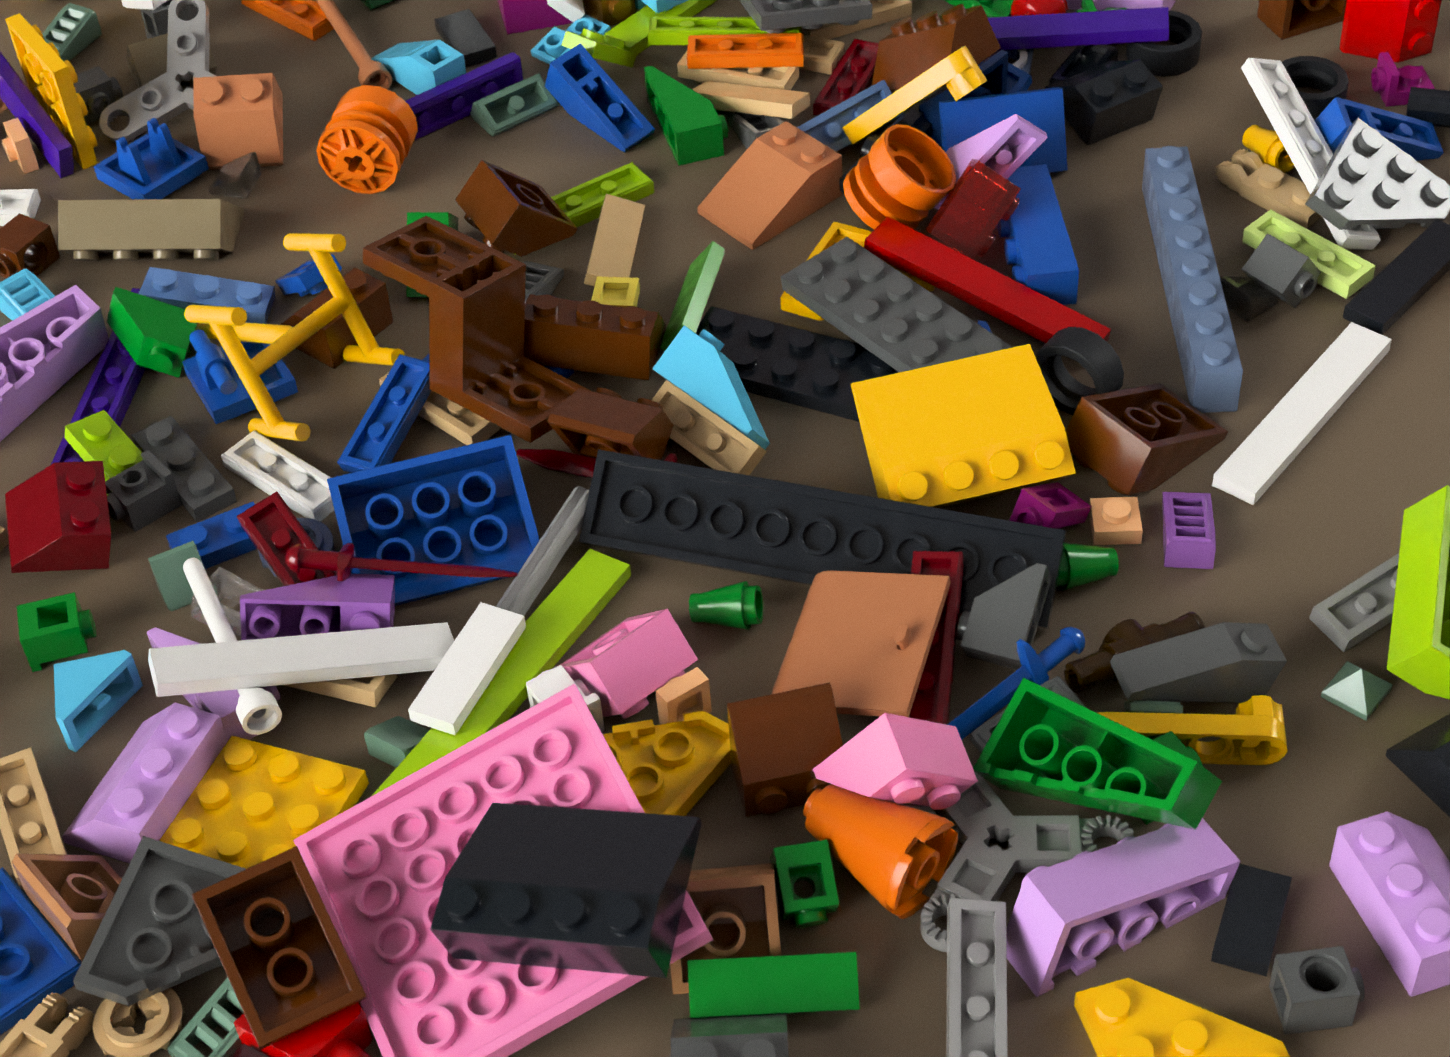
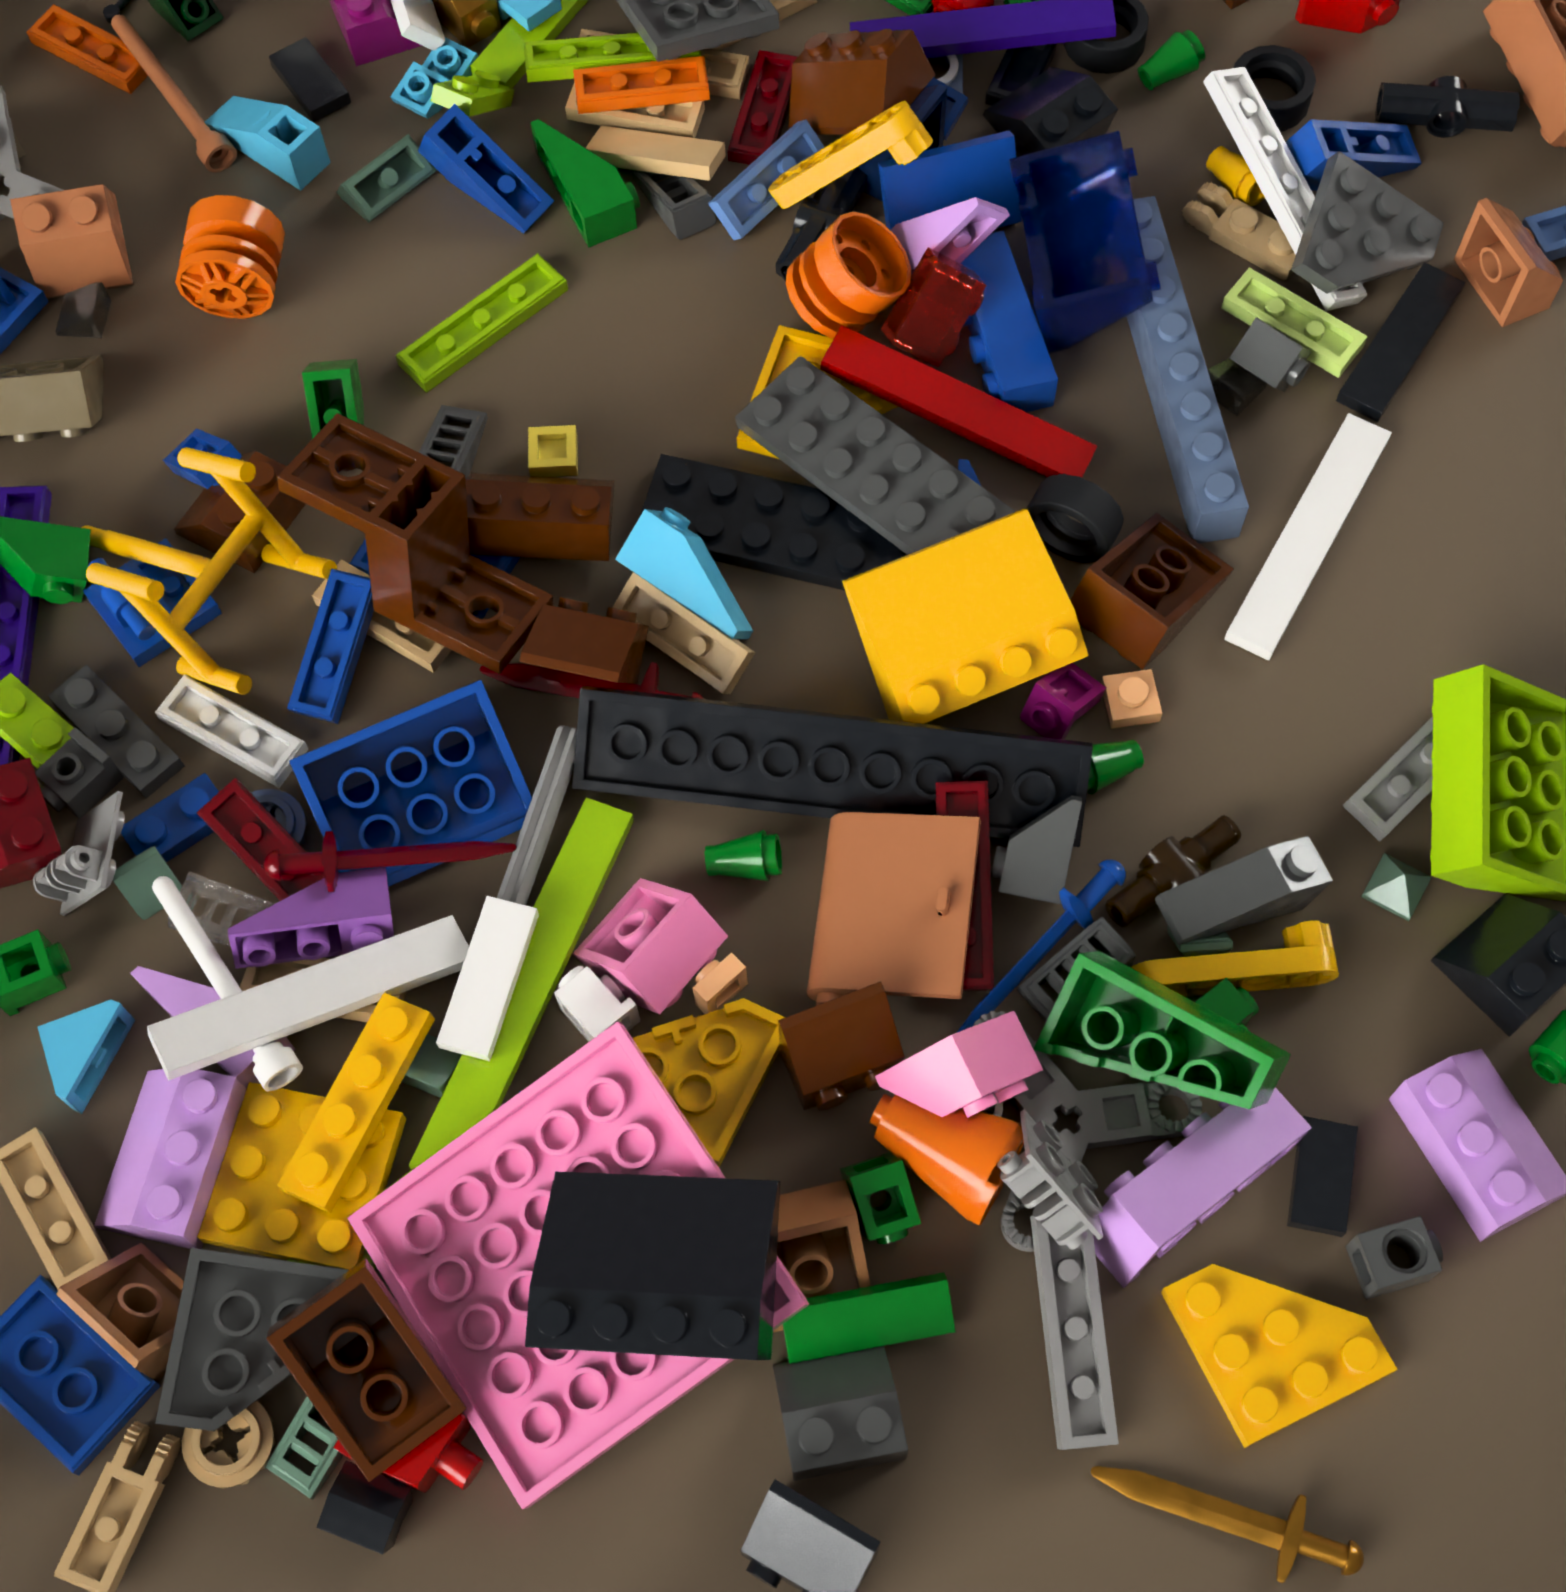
camera: 10 degrees left, 20 degrees up
(125, 548) = (88, 864): none -> light grey hinge
(195, 289) = (89, 492): medium blue plate -> none
(323, 751) = (356, 1102): none -> yellow plate
(456, 97) = (326, 171): dark purple tile -> none
(512, 211) = (419, 347): reddish brown slope -> none
(614, 239) = (537, 370): tan tile -> none
(694, 293) = (639, 446): bright green tile -> none
(774, 186) = (702, 278): nougat slope -> none
(964, 835) = (1052, 1184): none -> light grey hinge
(1114, 167) = (1082, 238): none -> clear blue windscreen
(1189, 538) = (1214, 734): medium lavender slope -> none
(1220, 65) = (1174, 59): none -> green cone
(1395, 83) = (1366, 68): magenta bracket -> none

